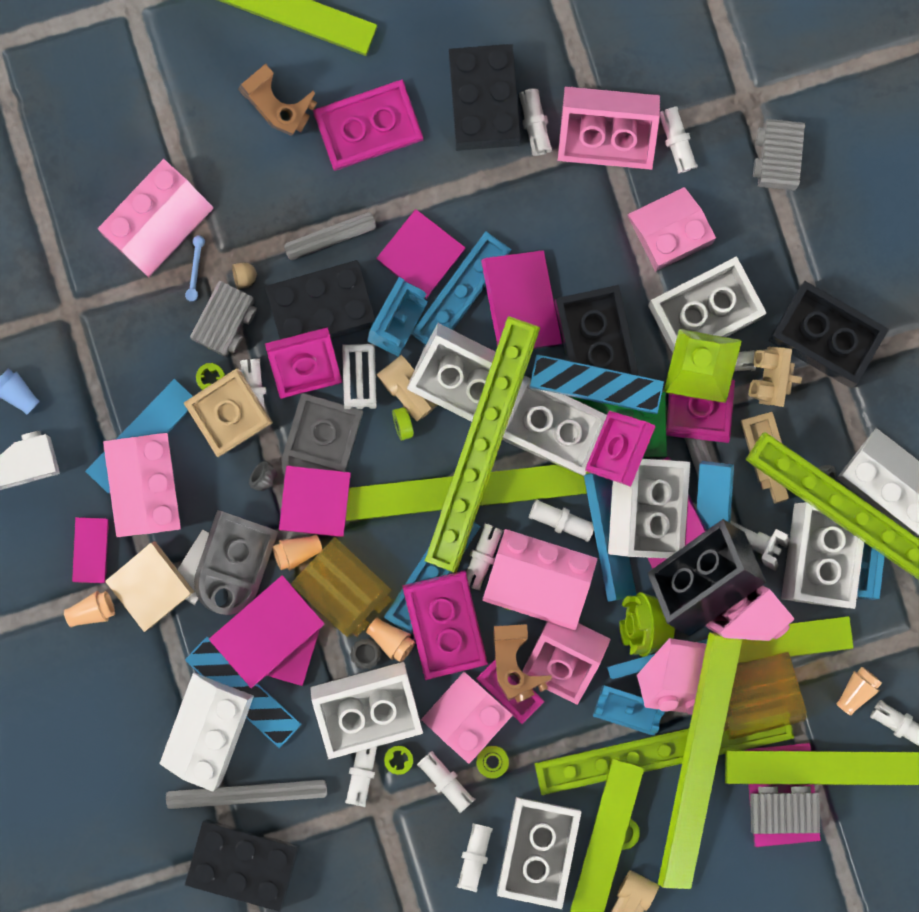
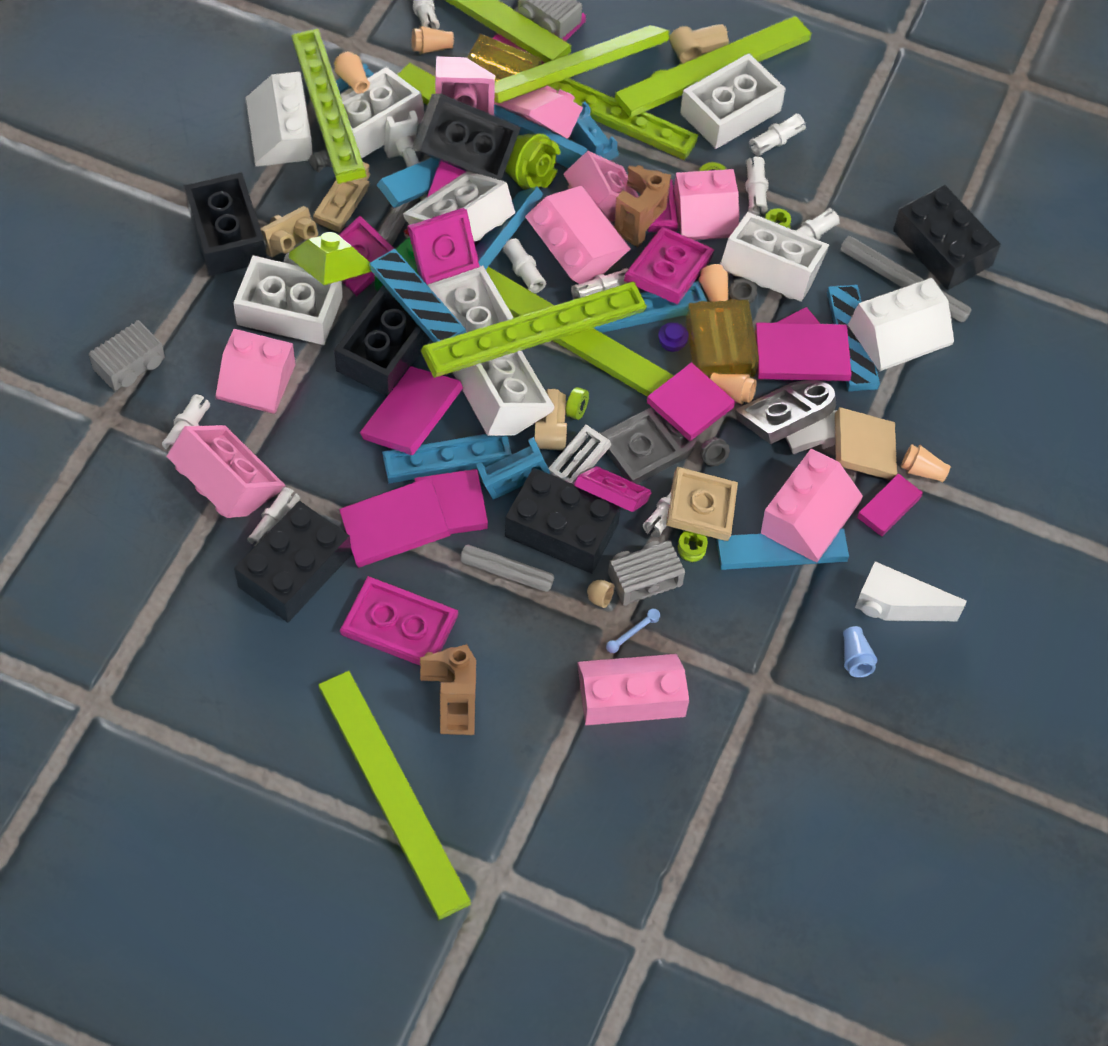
camera: 140 degrees left, 25 degrees down
(385, 559) = (673, 336): none -> dark purple plate
(443, 196) = (394, 522): none -> dark pink tile
(871, 568) = (350, 69): none -> light nougat cone

